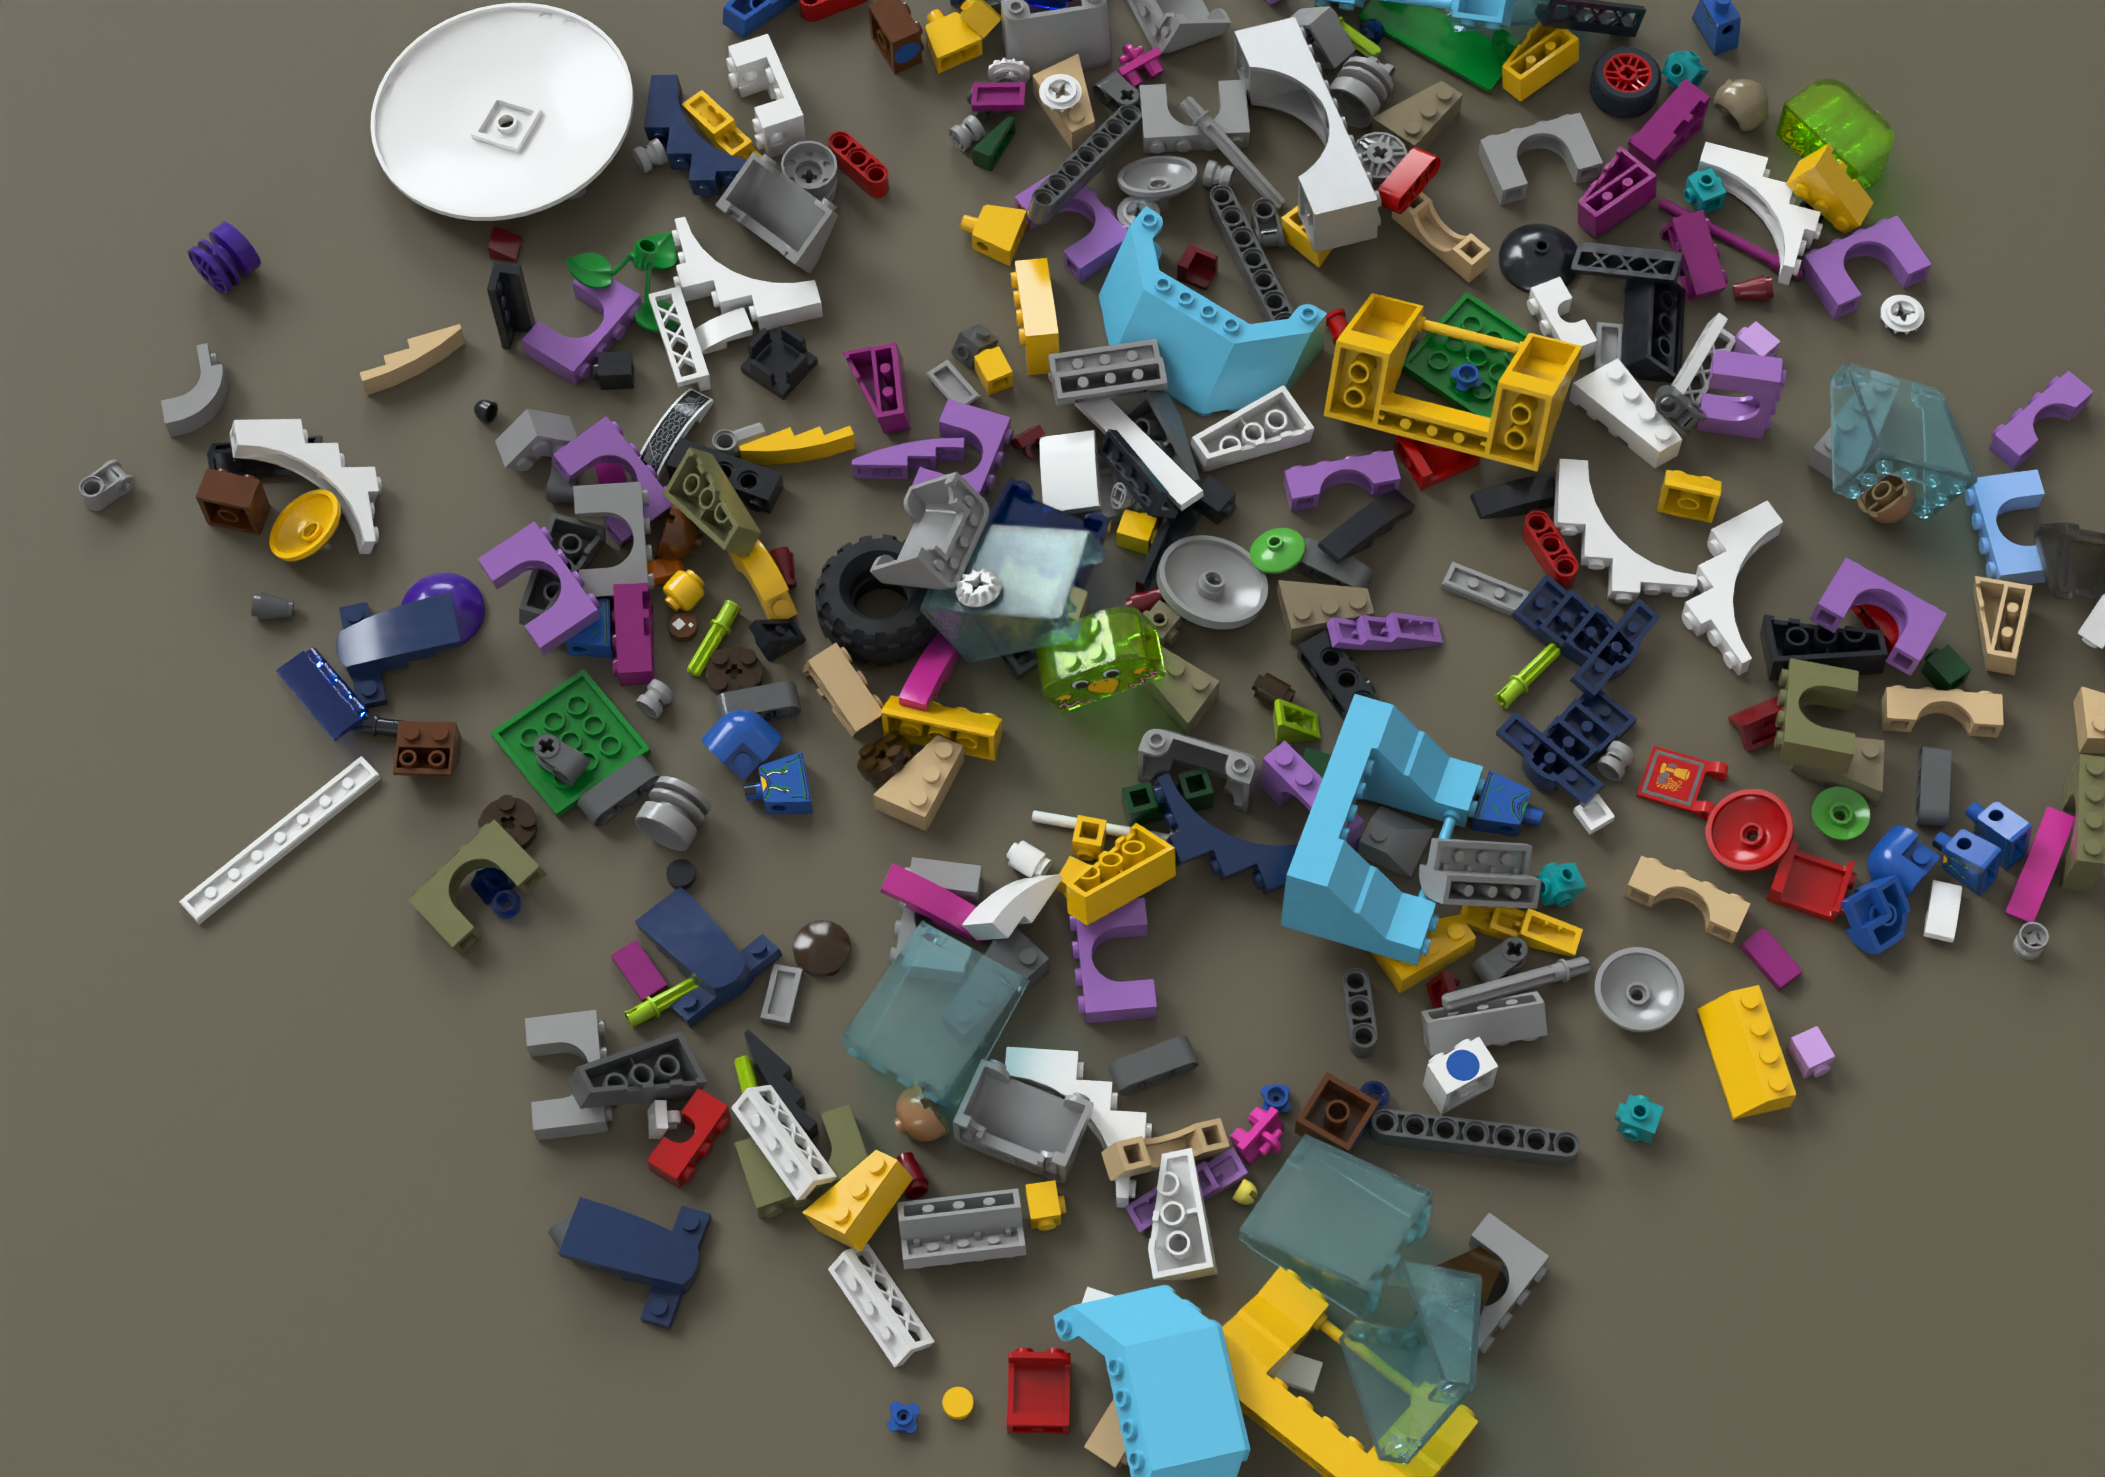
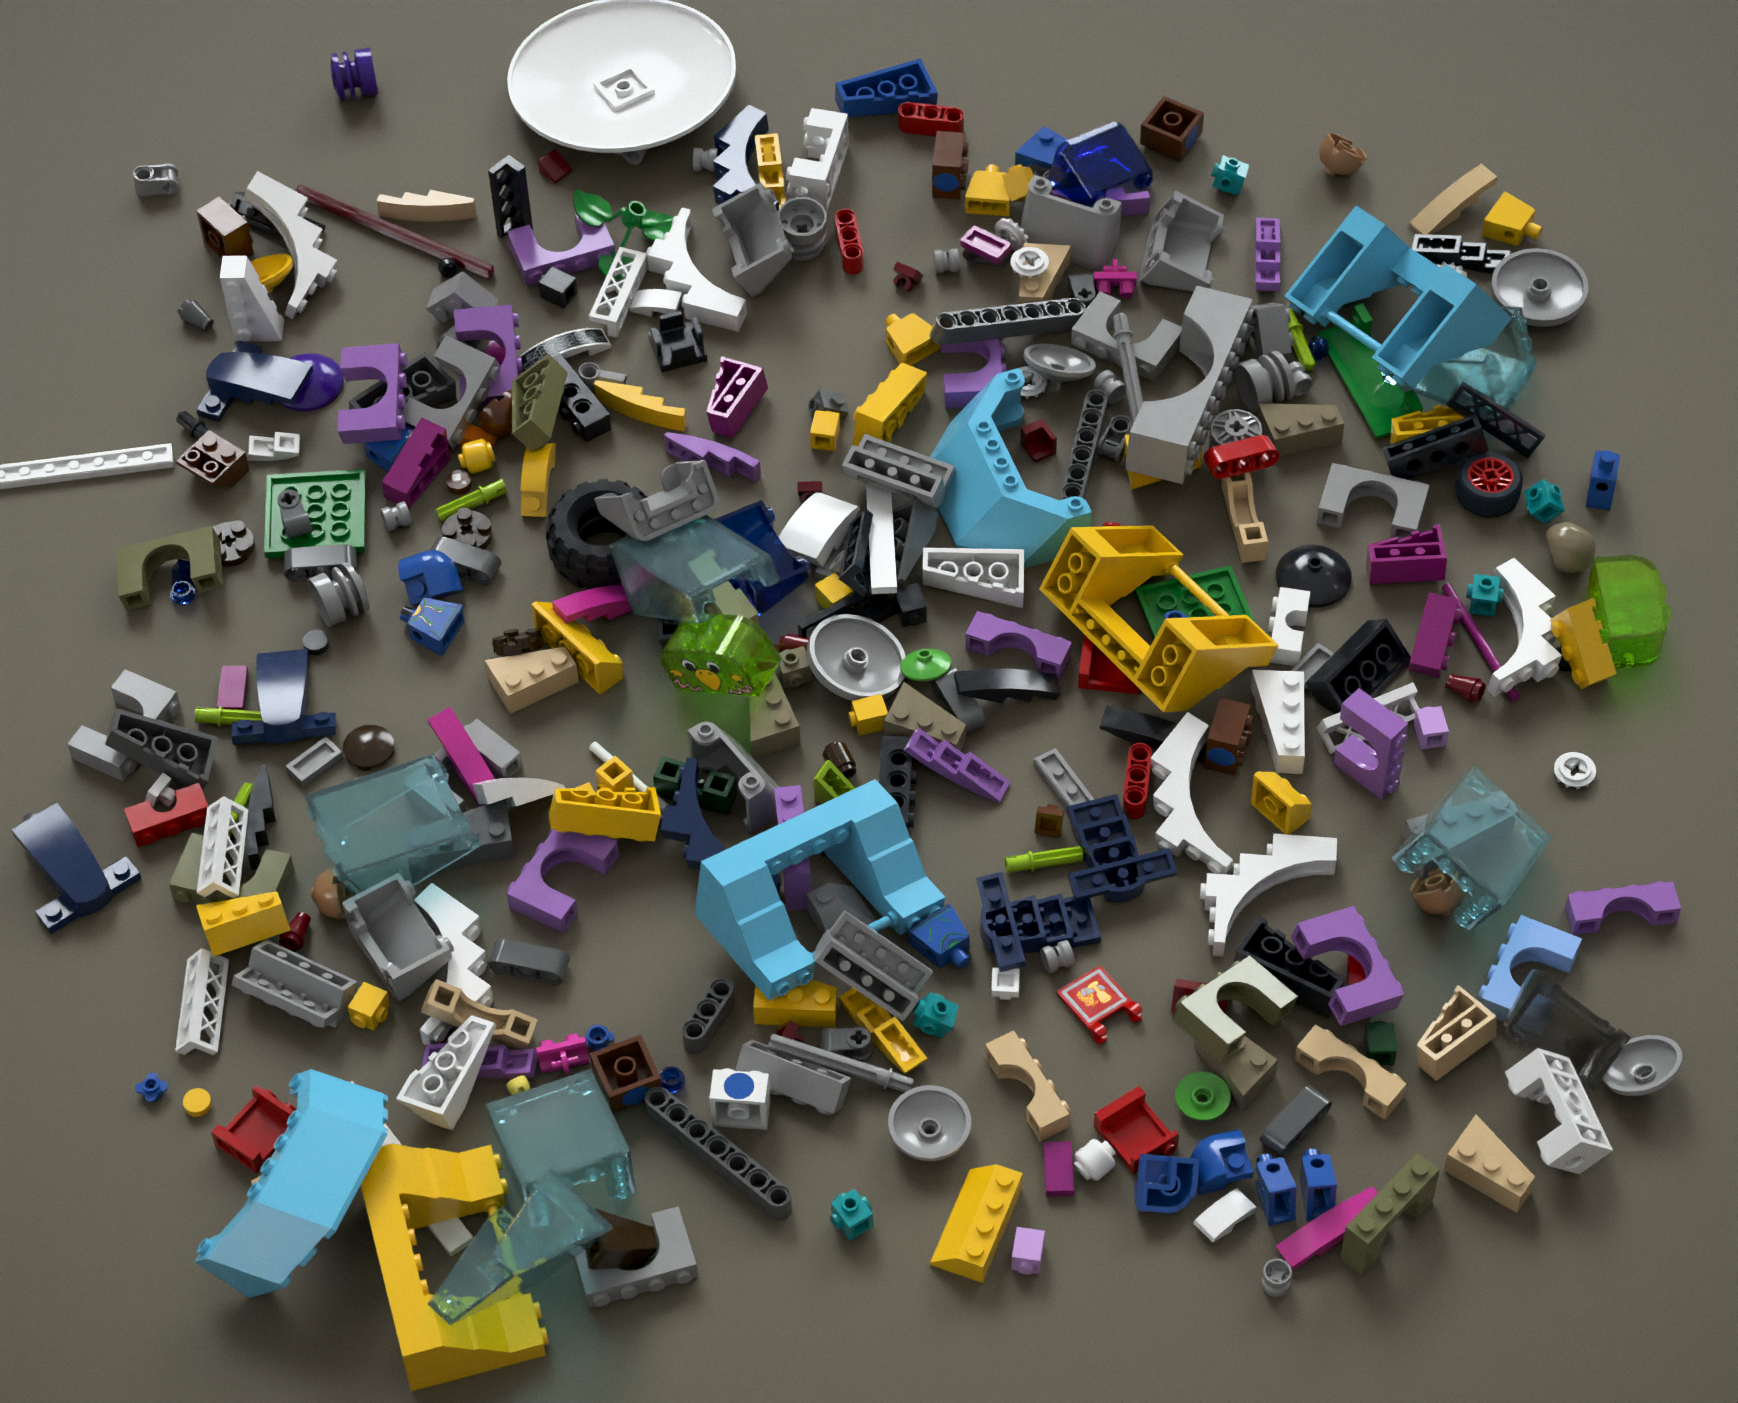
camera: 35 degrees right, 10 degrees down
(203, 402) = (268, 159): light grey arch -> none
(323, 693) = (180, 388): clear blue windscreen -> none
(332, 566) = (248, 306): none -> white wedge
(398, 402) = (395, 231): none -> axle
(469, 699) = (271, 449): none -> white slope
(776, 636) = (515, 522): black slope -> none
(785, 562) = (561, 478): dark red cone -> none
(844, 689) = (527, 578): tan wedge -> none
(941, 166) = (906, 273): none -> dark red tile
(952, 383) = (788, 426): light grey tile -> none
(982, 430) = (783, 474): medium lavender arch -> none
(983, 594) = (657, 549): white gear -> none
(991, 148) = (961, 278): dark green slope -> none
(1028, 860) = (561, 770): white brick -> none
(1264, 630) = (868, 714): none -> yellow brick
(1505, 635) = (1049, 820): none -> reddish brown tile
(1561, 74) = (1436, 448): none -> black brick
(1606, 459) = (1228, 736): none -> reddish brown brick
(1628, 261) = (1370, 604): black fence -> none
(1670, 126) = (1494, 534): magenta wedge -> none
(1682, 413) = (1317, 734): dark grey piece -> none
(1744, 815) = (1115, 1062): red dish -> none
(1799, 931) = (1095, 1159): none -> white head
(1885, 241) = (1603, 707): medium lavender arch -> none

